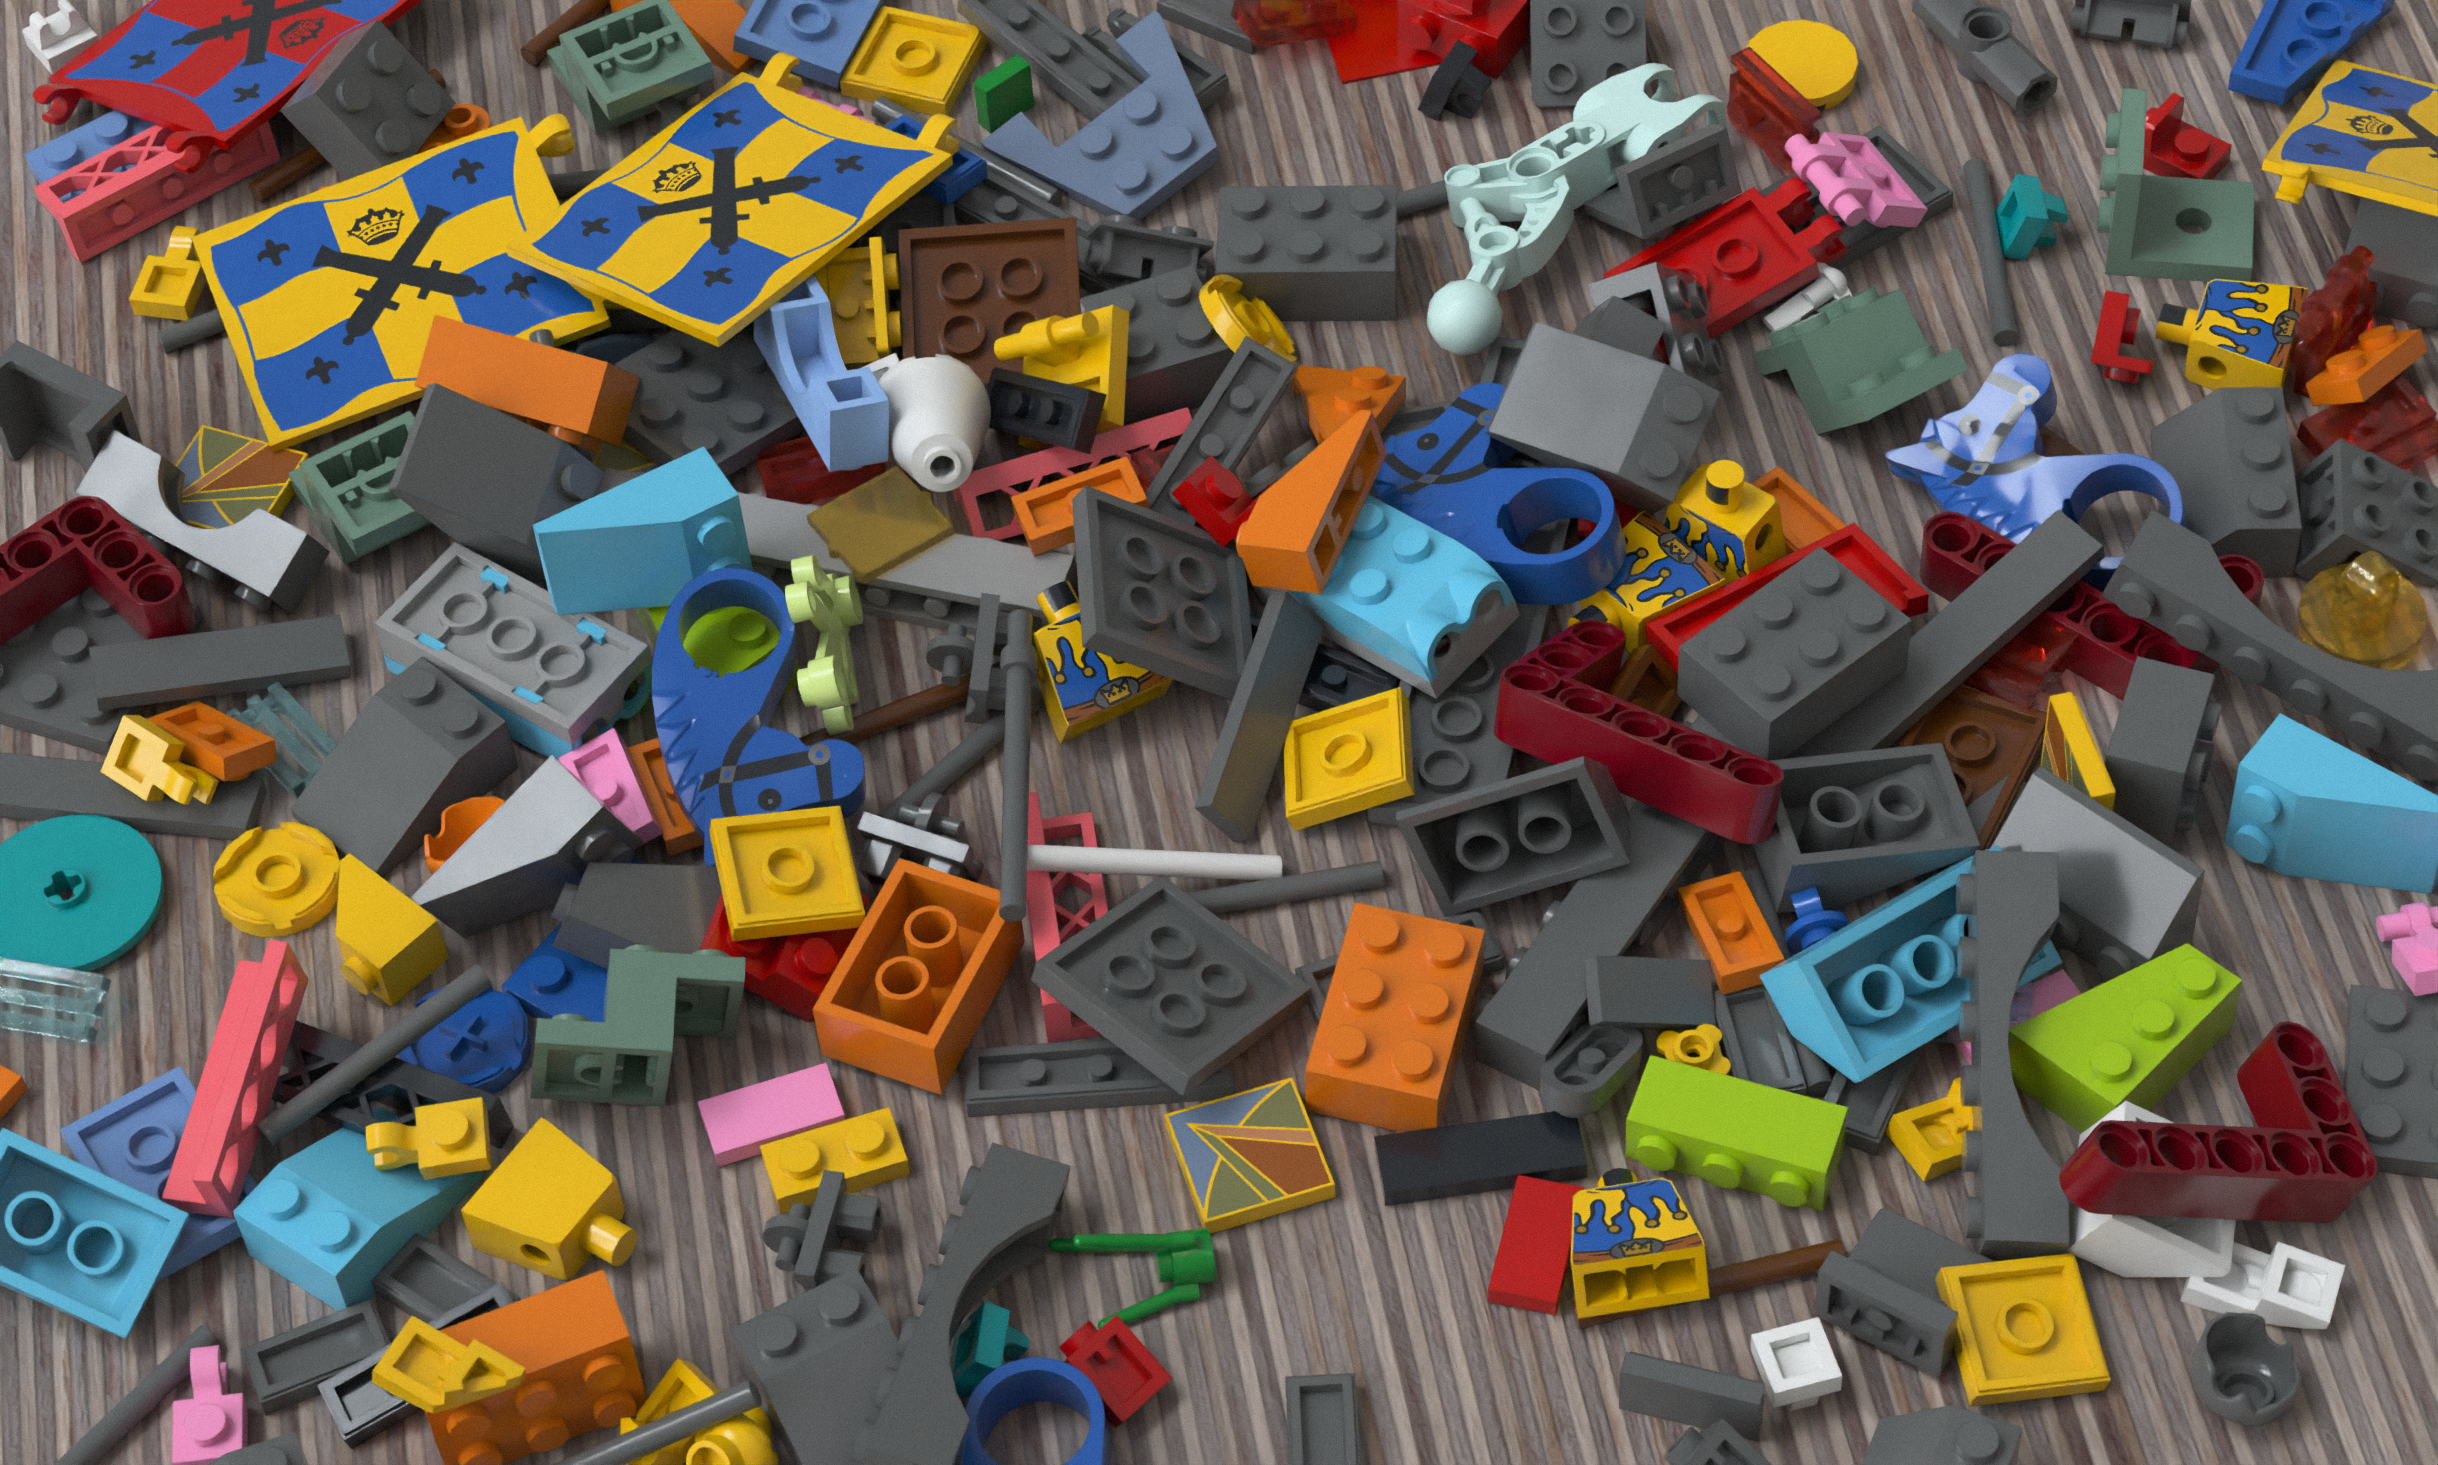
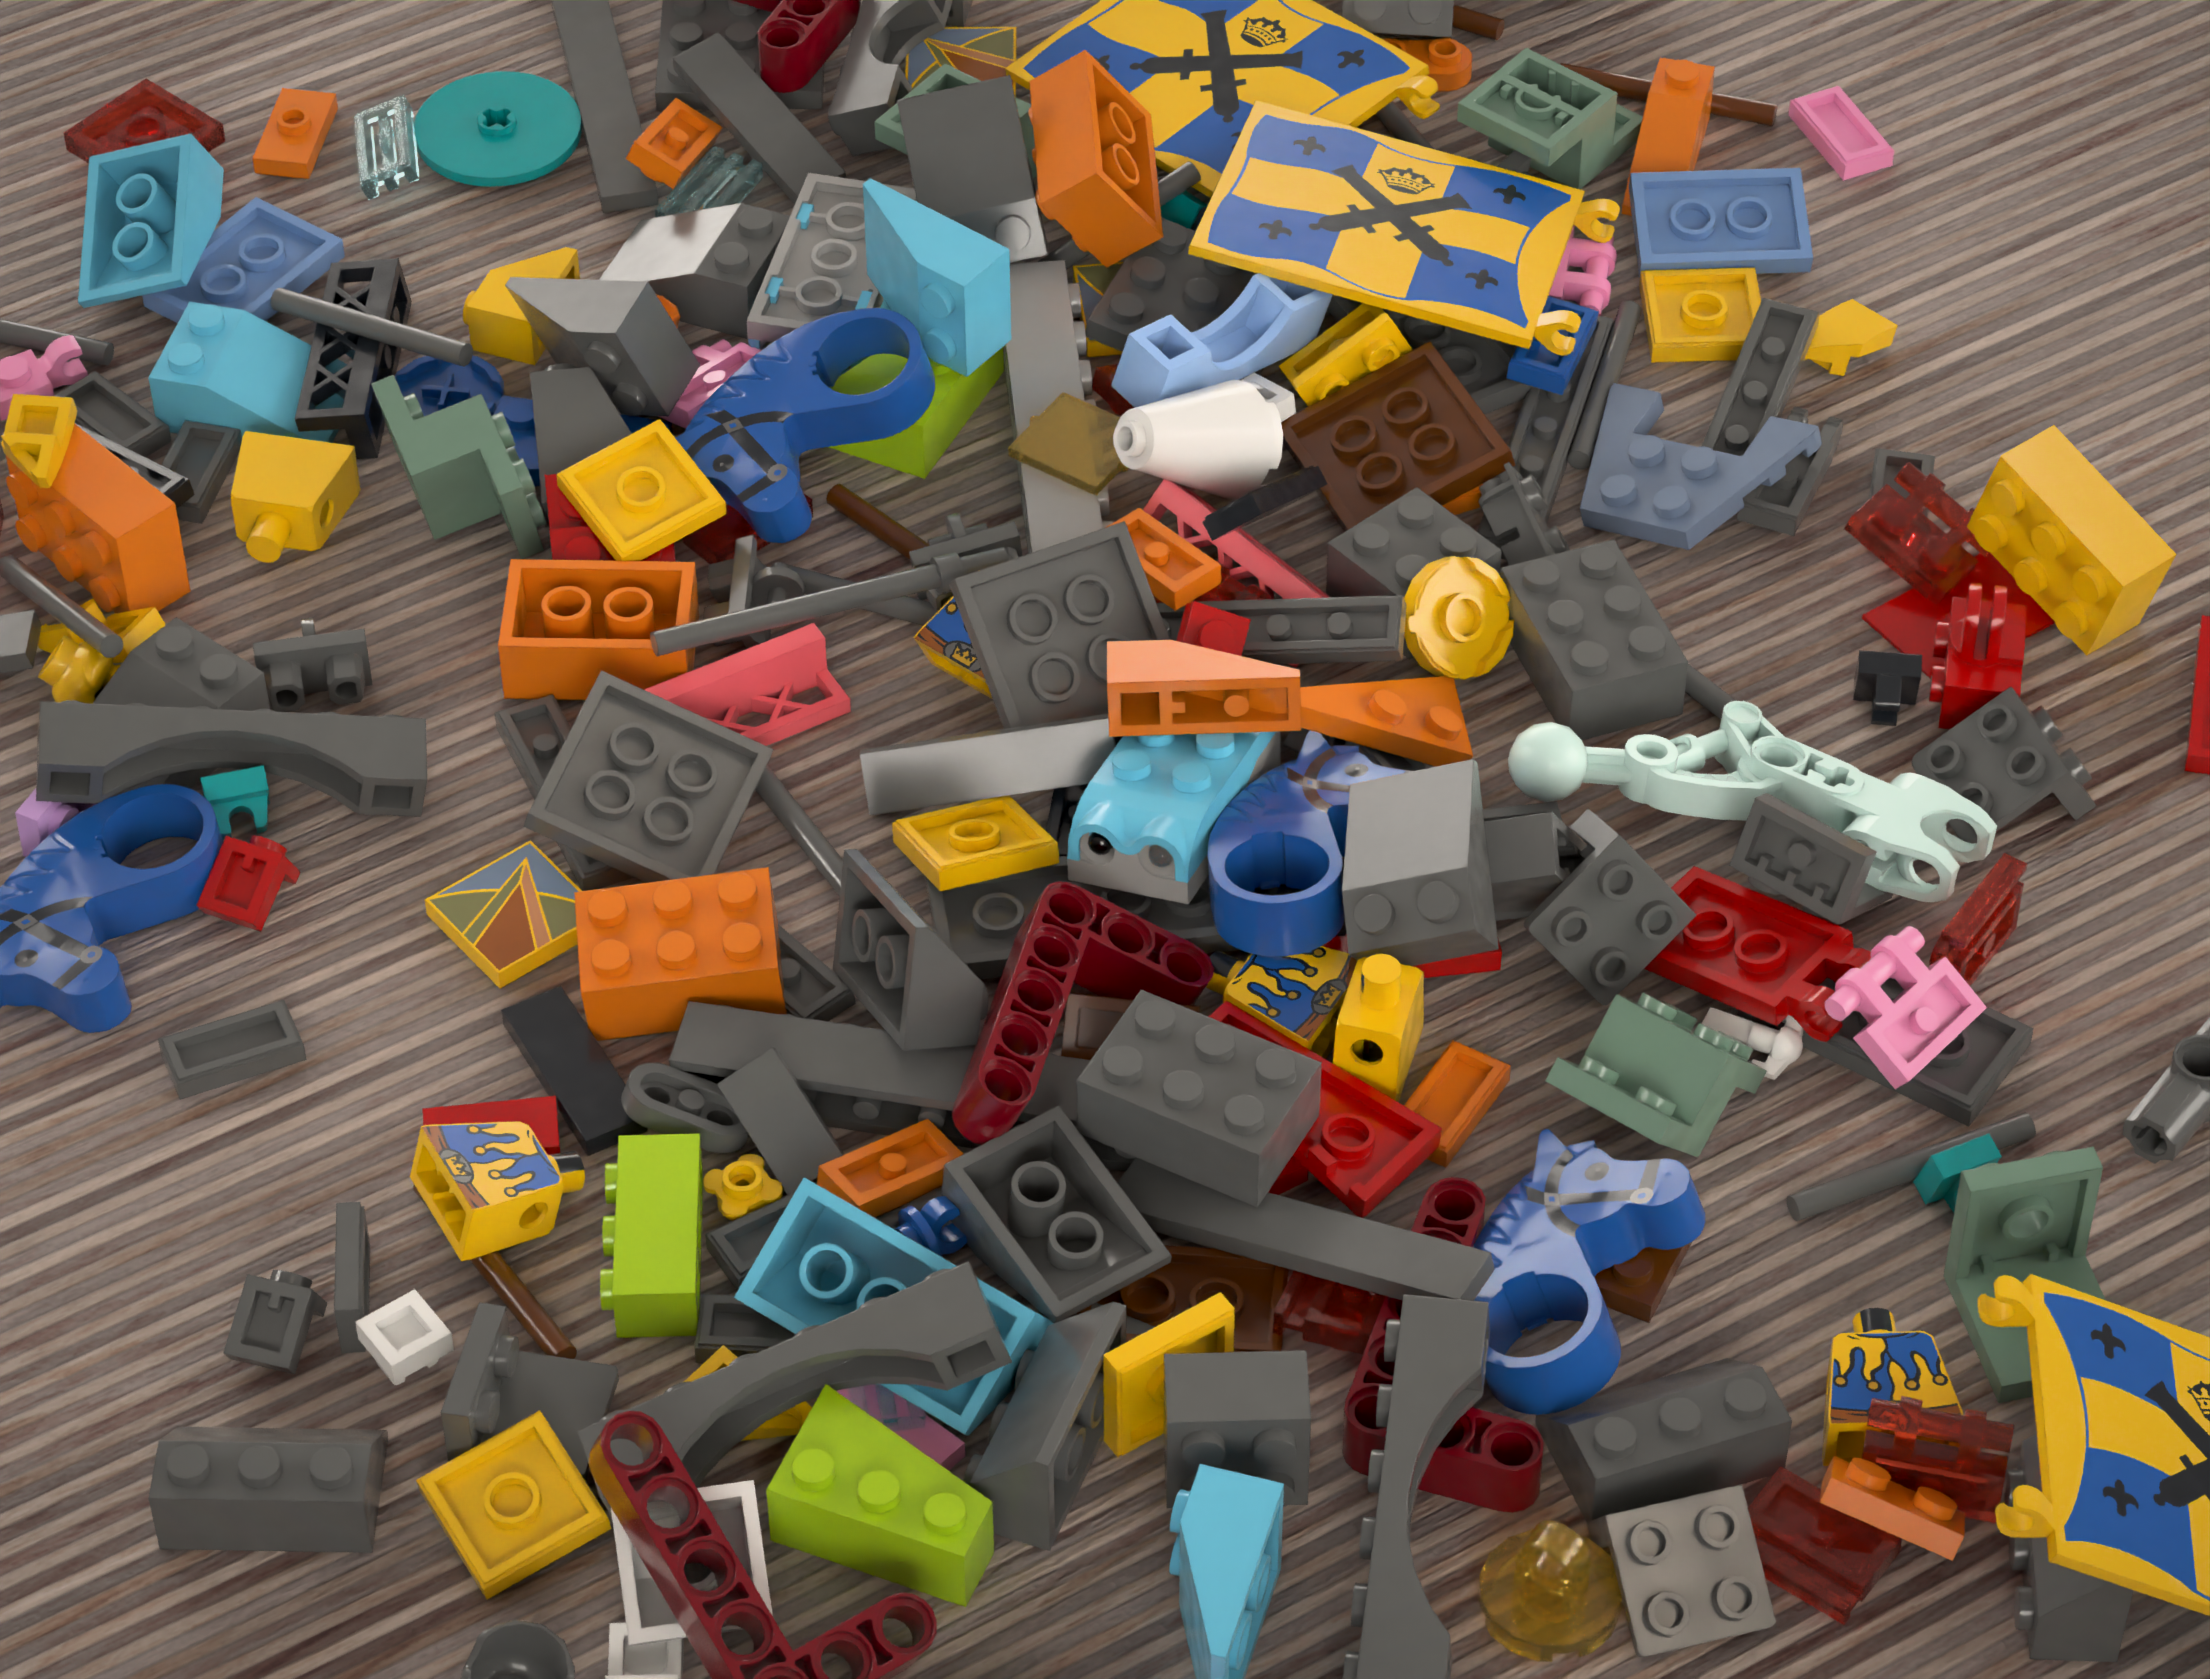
camera: 65 degrees right, 5 degrees down
(148, 764) = (626, 113): yellow plate -> none
(237, 1084) = (313, 258): coral fence -> none
(277, 880) = (572, 223): yellow tile -> none
(444, 1142) = (303, 396): yellow plate -> none
(769, 1112) = (441, 601): bright pink tile -> none
(832, 607) = (917, 448): yellowish green plant -> none
(861, 1147) = (413, 654): yellow plate -> none
(1003, 93) = (1682, 377): green tile -> none
(1078, 352) = (1341, 501): yellow plate -> none
(1153, 862) = (790, 743): white bar -> none
(1179, 1257) = (379, 894): green plant -> none
(1811, 58) = (2088, 948): yellow tile -> none
(2117, 326) = (1816, 1280): red bracket -> none
(2179, 148) = (2157, 1273): red bracket -> none

